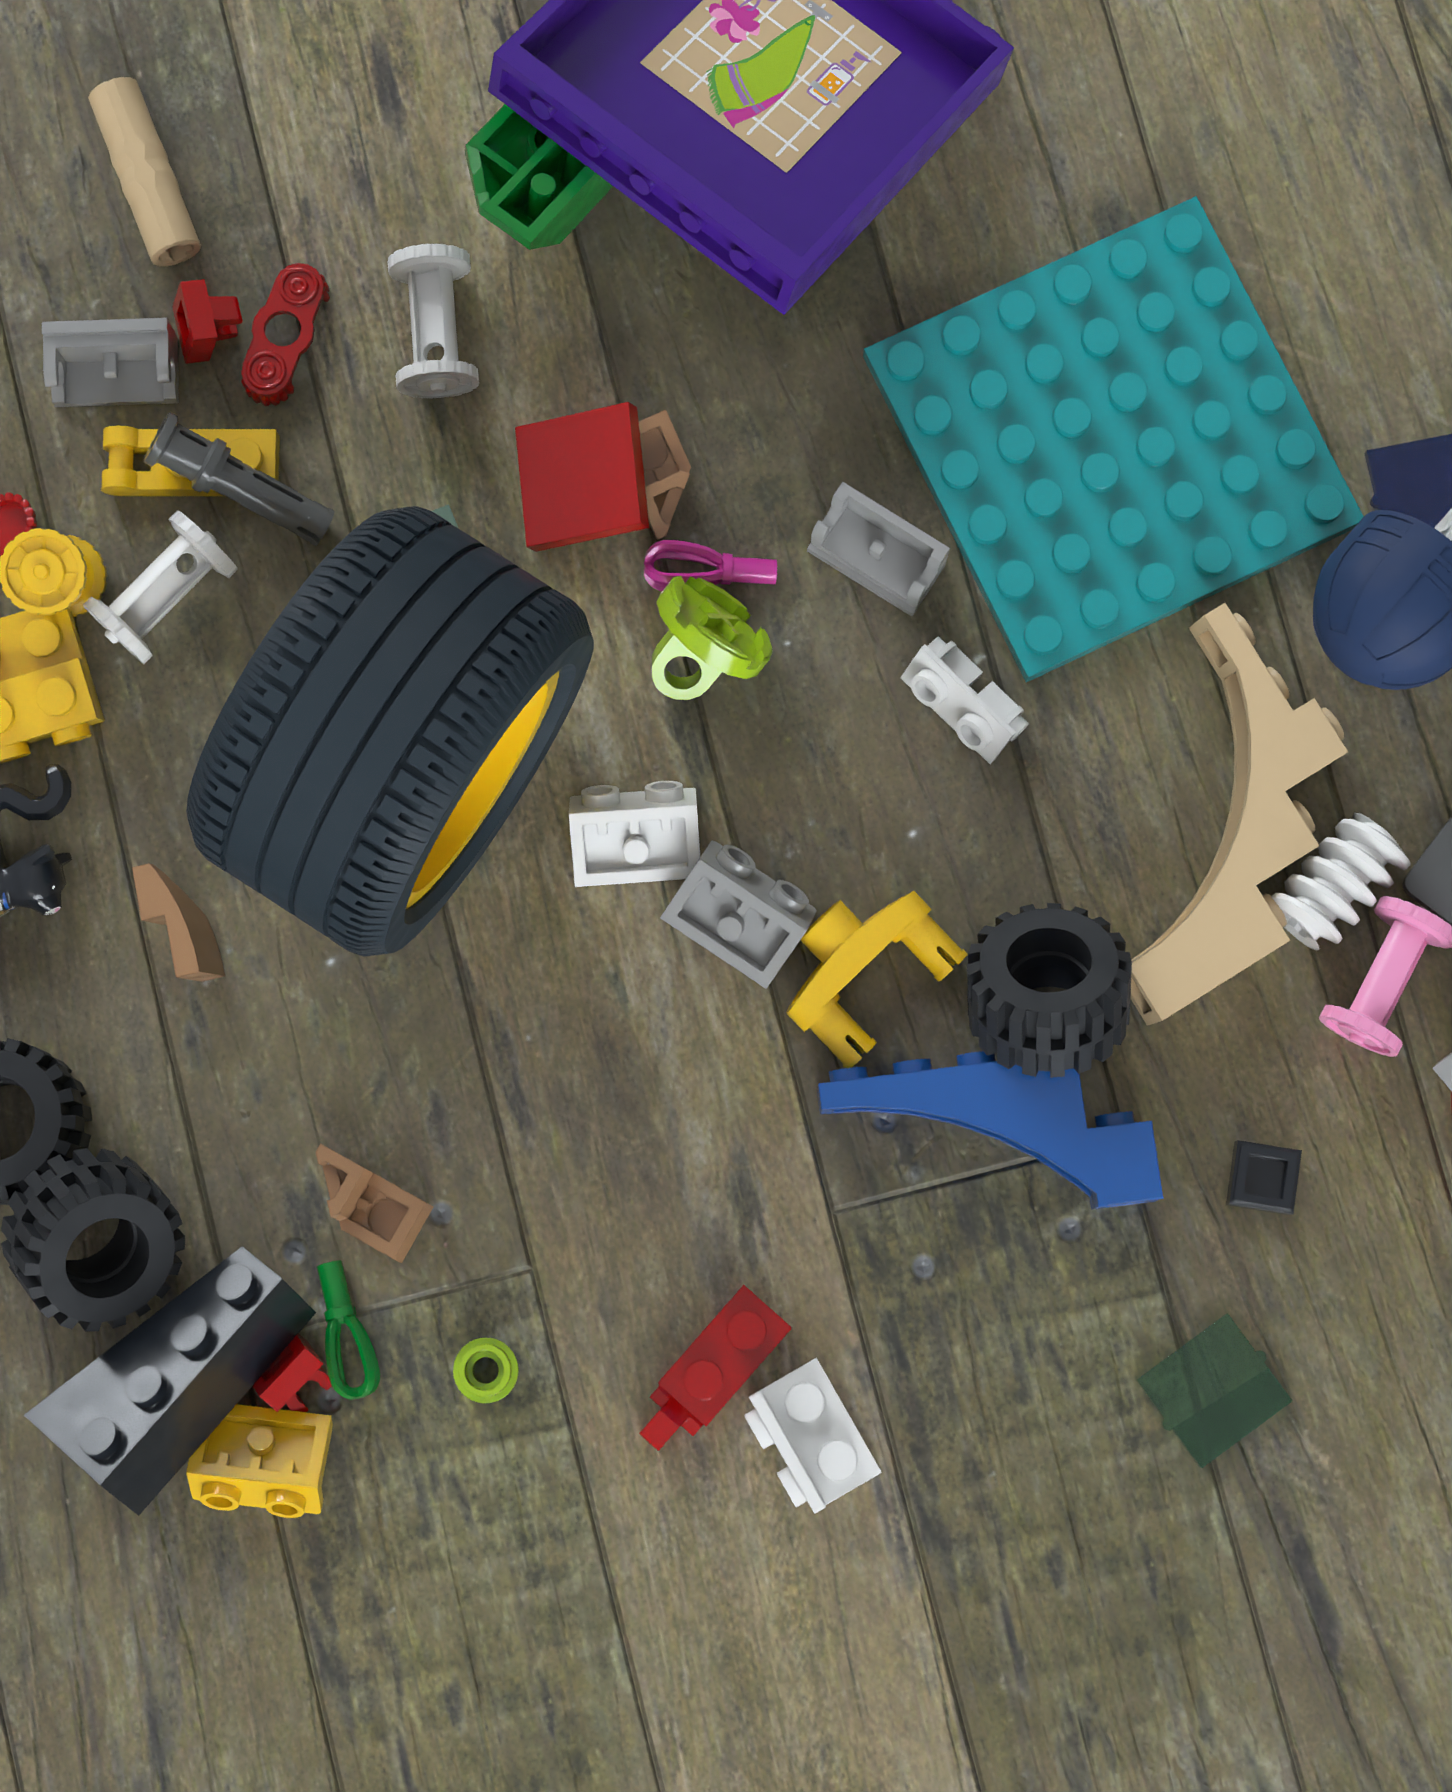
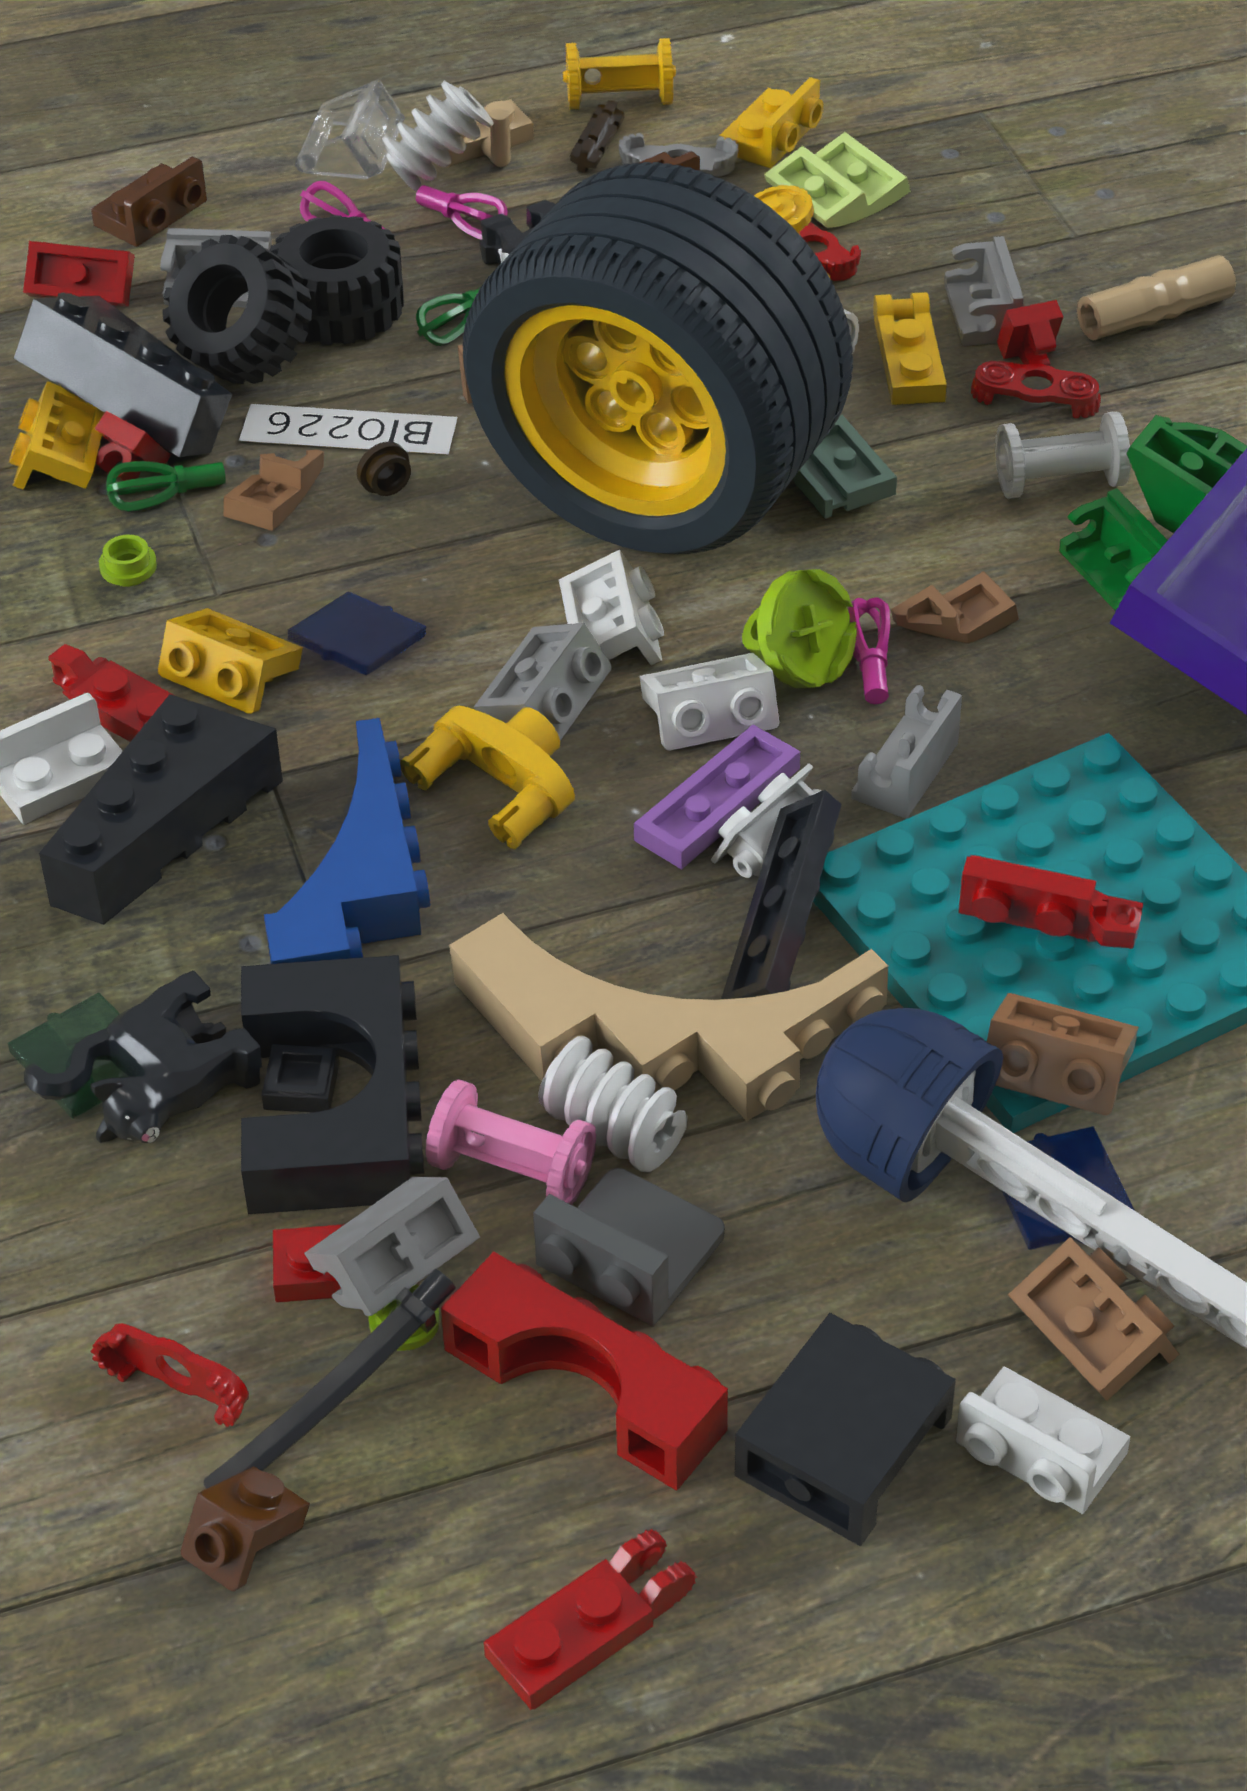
camera: 85 degrees right, 35 degrees down
(40, 962) = (425, 329): none -> green piece
(213, 468) = (896, 331): dark grey pin -> none
(252, 1118) = (347, 428): none -> white sticker
(362, 1073) = (384, 469): none -> dark brown plate
(582, 477) = (939, 555): red tile -> none
(593, 289) = (1112, 545): none -> green hinge
(633, 1111) = (357, 633): none -> clear blue piece
(662, 1252) = (224, 658): none -> yellow bracket
(773, 740) = (711, 700): none -> white bracket
(894, 1315) = (156, 804): none -> black wedge
(923, 746) = (696, 810): none -> medium lavender plate
(1049, 1027) = (474, 855): black tyre -> none
(1096, 697) = (783, 898): none -> black plate
(1147, 438) = (1047, 902): none -> red hinge
(1249, 1313) = (169, 1061): none -> black animal
(1324, 460) = (1061, 1052): none -> medium nougat bracket
(1373, 1109) = (360, 1147): none -> black arch

